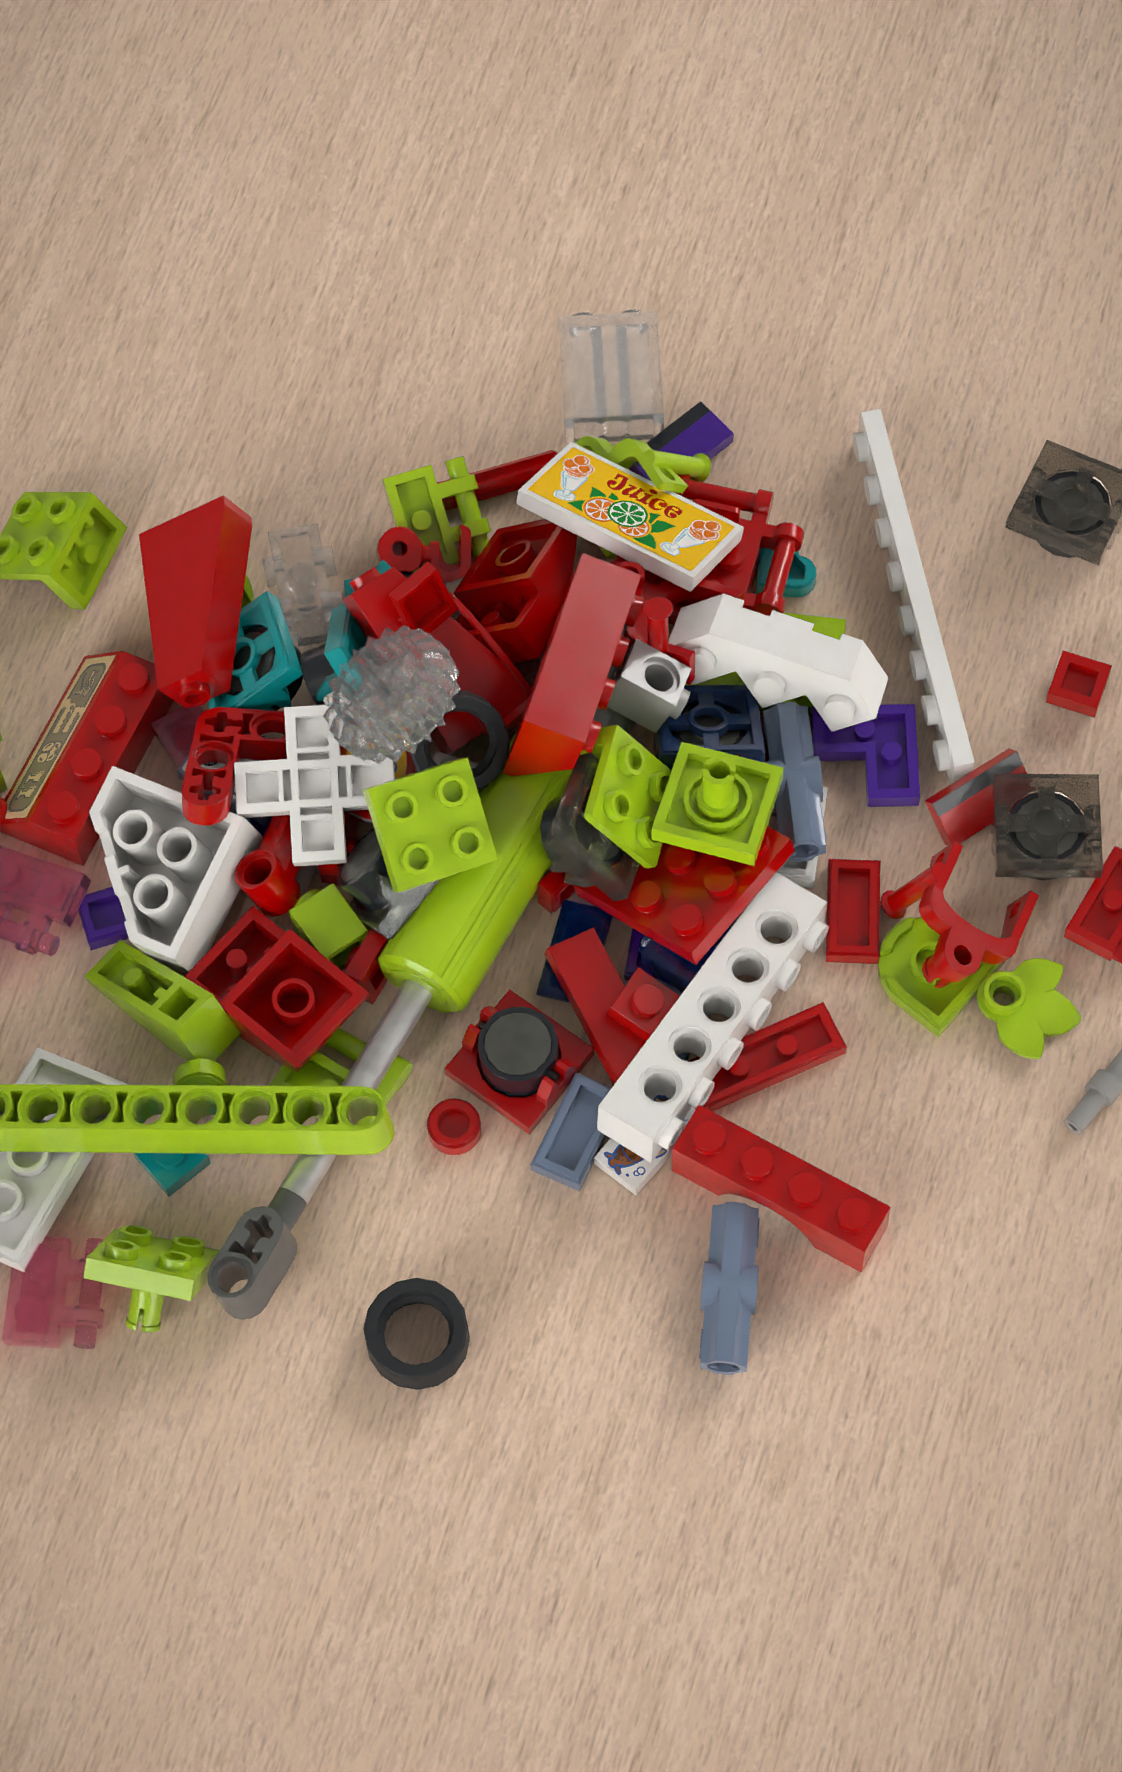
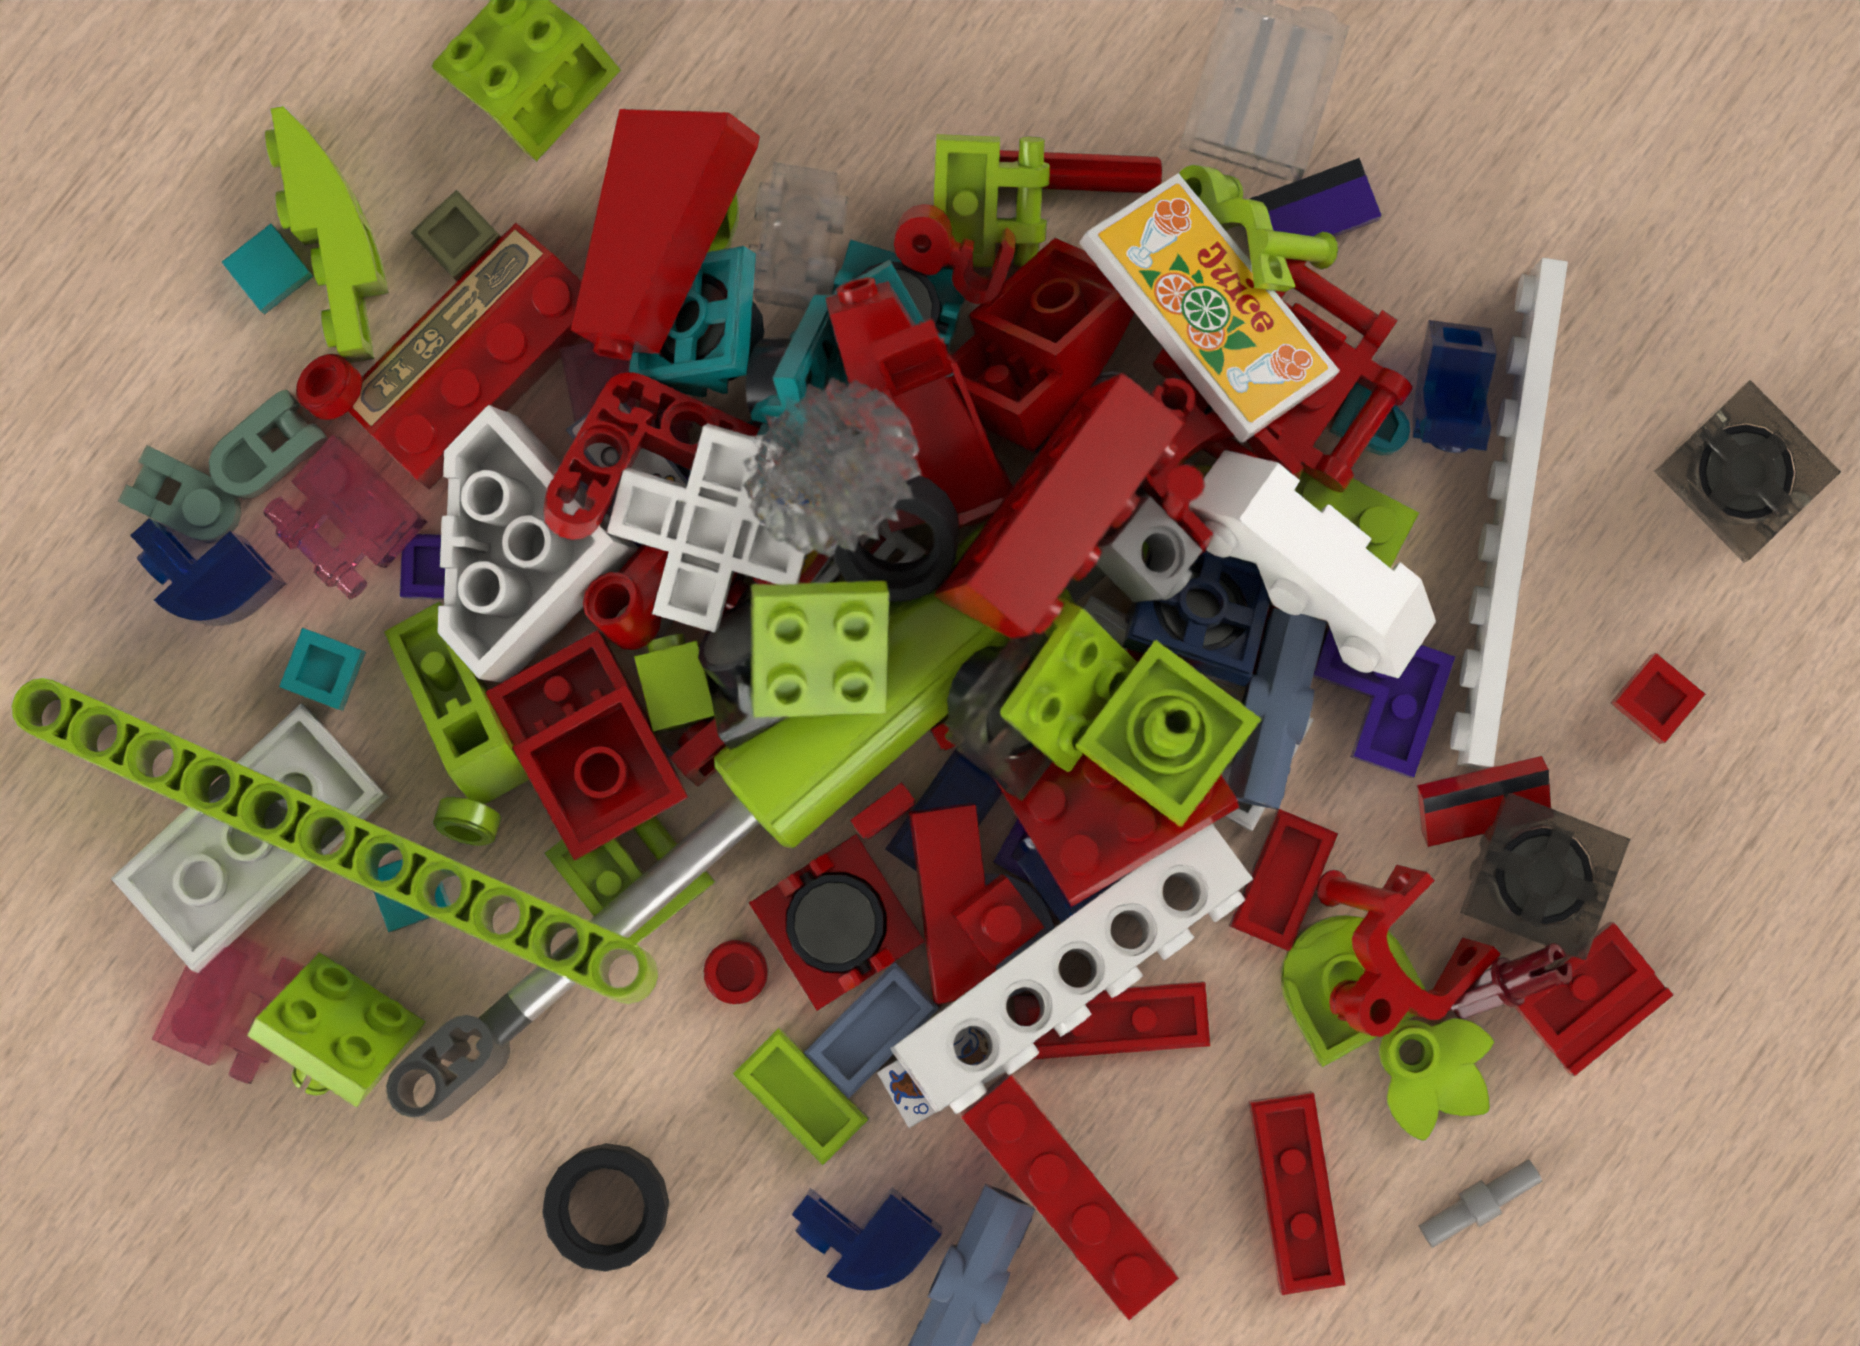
camera: 20 degrees right, 20 degrees up
(41, 680) = (456, 235): none -> olive tile
(45, 1015) = (322, 669): none -> teal plate
(524, 963) = (883, 811): none -> red tile
(541, 1200) = (801, 1096): none -> lime tile
(644, 1289) = (877, 1252): none -> clear blue brick
(834, 524) = (1454, 387): none -> clear blue brick
(959, 1133) = (1296, 1193): none -> red tile
(1054, 910) = (1512, 981): none -> dark red axle

